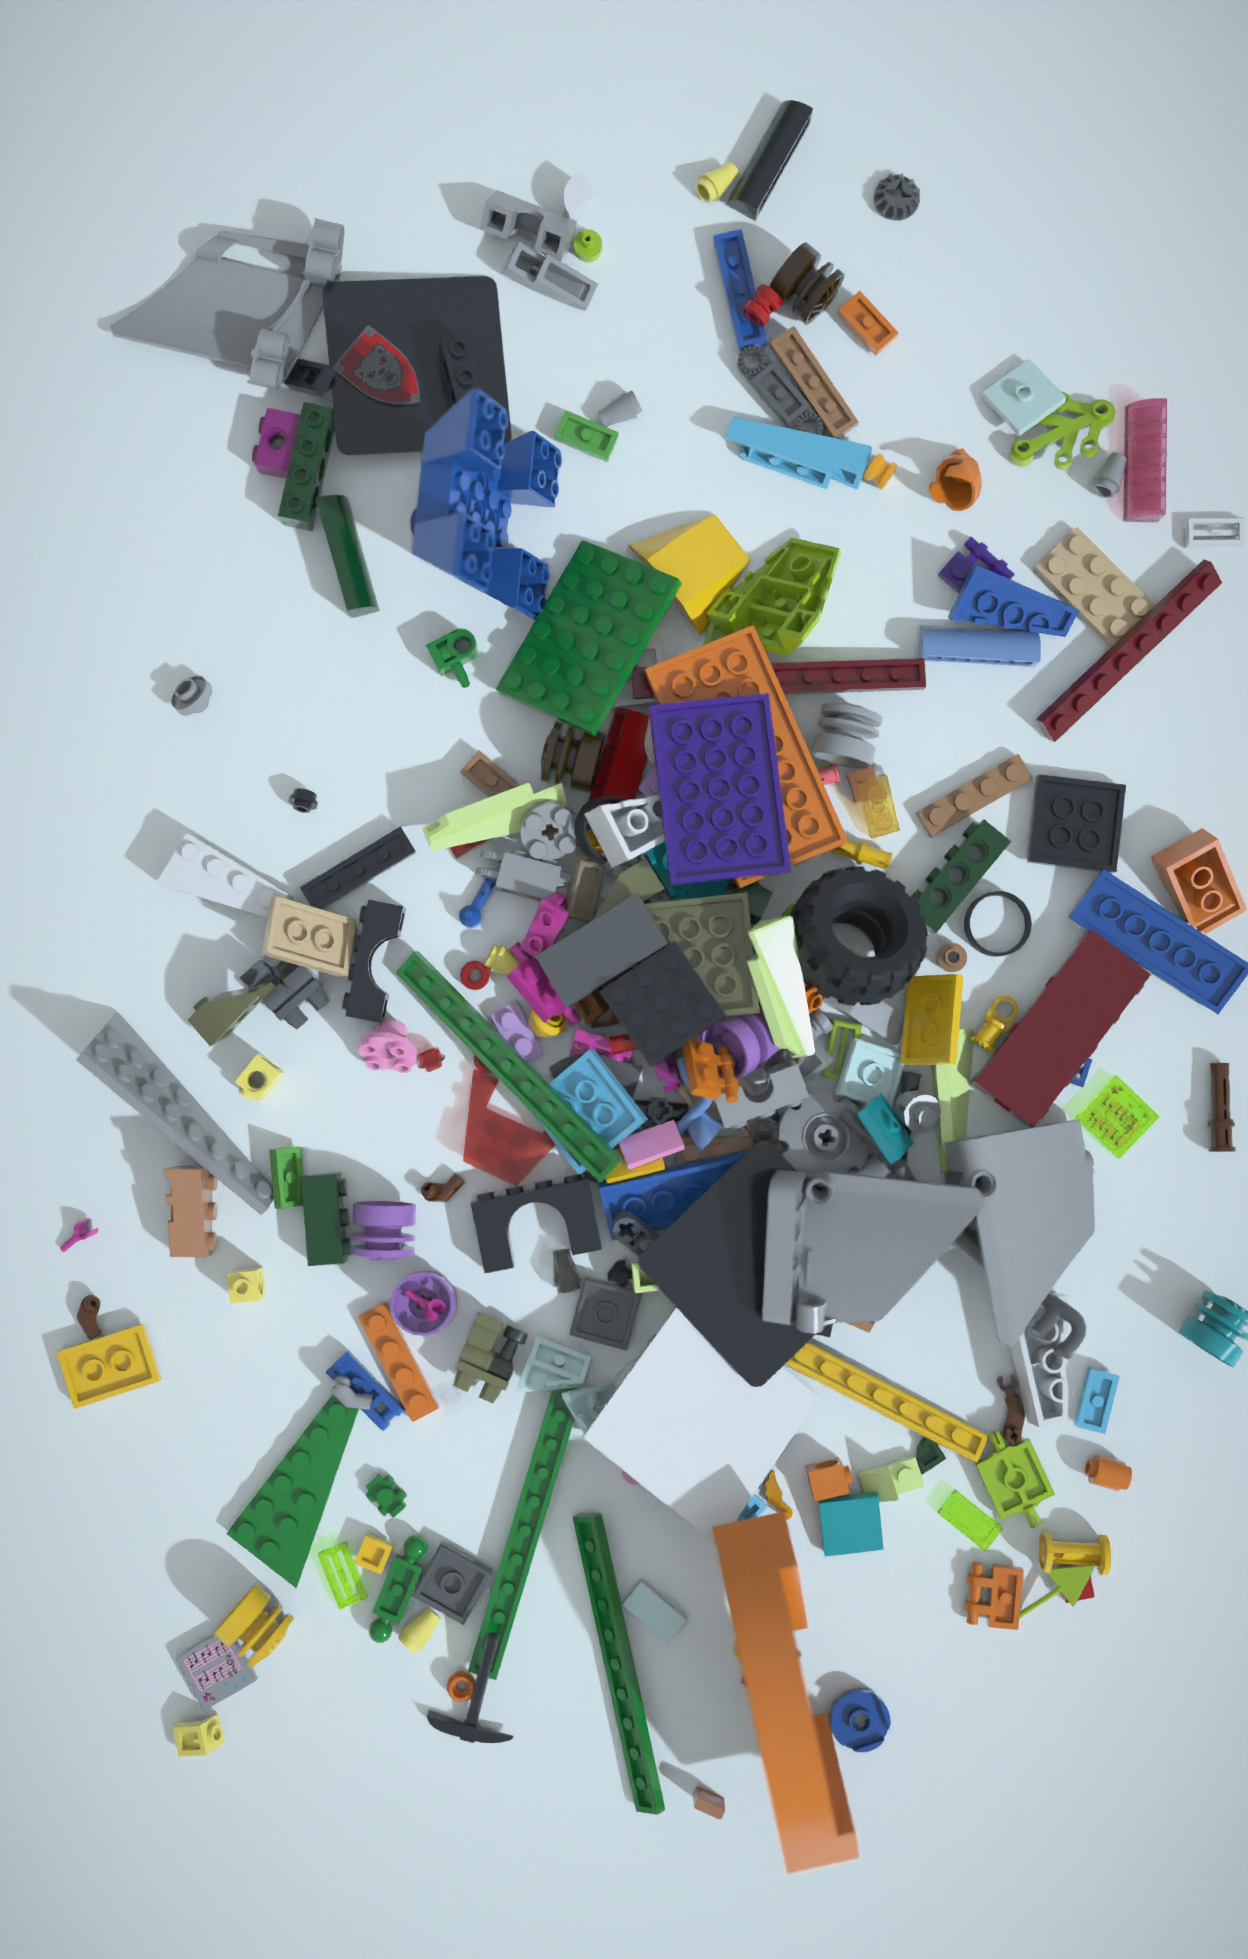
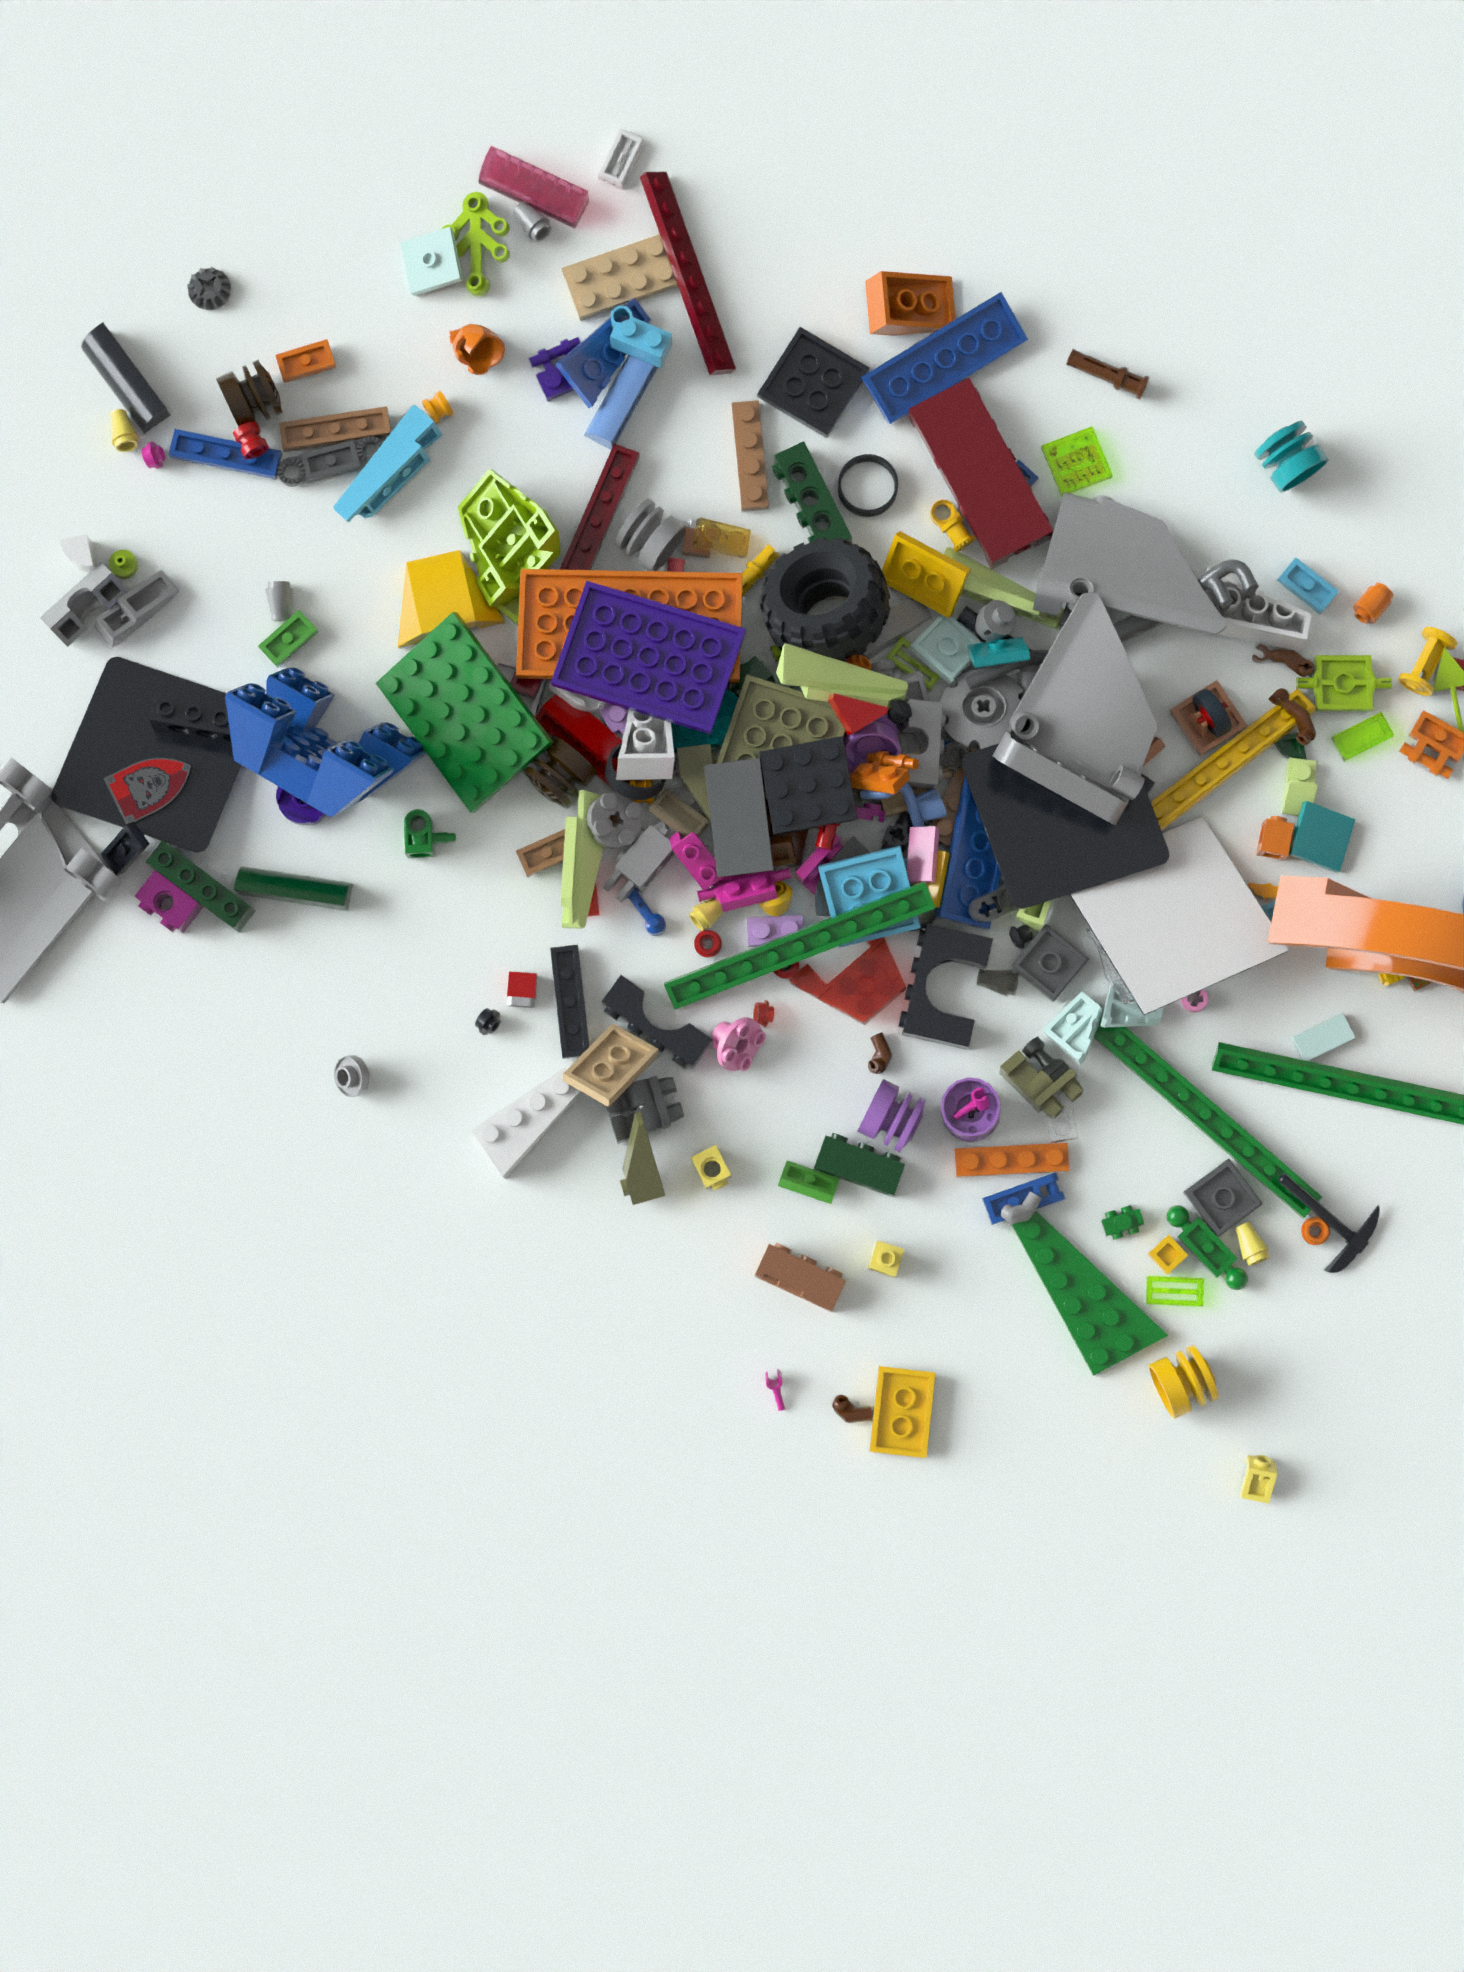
camera: 60 degrees left, 5 degrees down
(146, 1084) = (670, 1264): light grey wing -> none
(215, 1670) = (1207, 1438): light grey tile -> none
(350, 818) = (521, 989): none -> red piece
(706, 222) = (153, 455): none -> dark pink plate
(753, 1018) = (855, 713): none -> red slope
(780, 1058) = (899, 711): none -> black piece
(918, 1361) = (1208, 718): none -> nougat plate
(943, 961) = (875, 543): medium nougat plate -> none
(960, 1454) = (1301, 715): none -> reddish brown arm
(1038, 633) = (639, 338): none -> medium azure hinge

